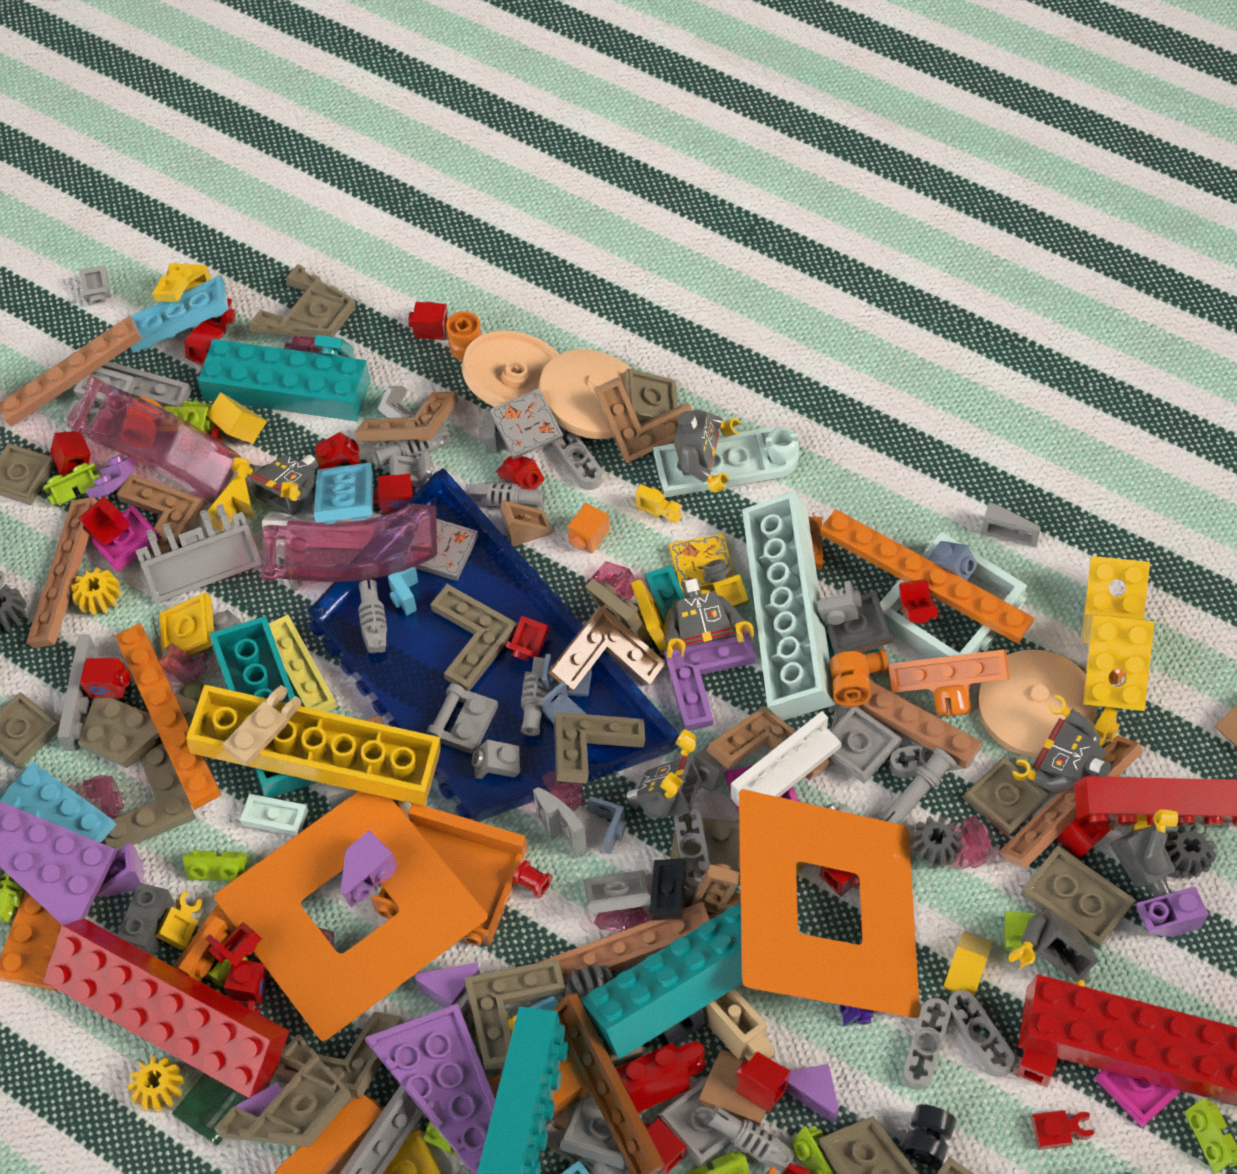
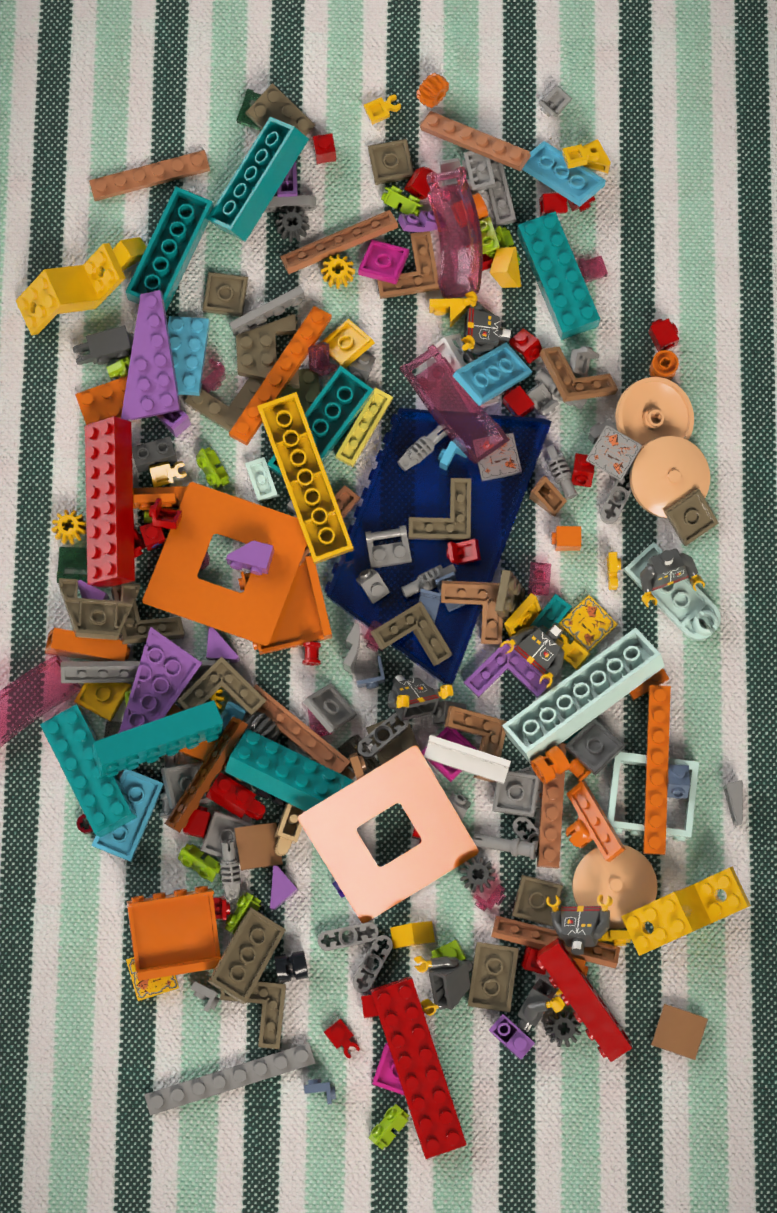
camera: 55 degrees right, 20 degrees up
(104, 521) = (384, 243): red panel -> none
(104, 678) = (282, 322): red brick -> none
(200, 558) = (395, 316): light grey hinge -> none
(261, 727) = (289, 443): tan hinge -> none
(317, 312) = (623, 259): dark tan wing -> none
(334, 346) = (599, 290): teal plate -> none
(631, 437) = (651, 523): medium nougat plate -> none
(668, 889) = (344, 737): black plate -> none
(716, 570) = (583, 636): dark grey plate -> none
(762, 1081) = (263, 857): red brick -> none
(840, 608) = (592, 730): light grey bracket -> none
(916, 601) = (630, 775): red bracket -> none

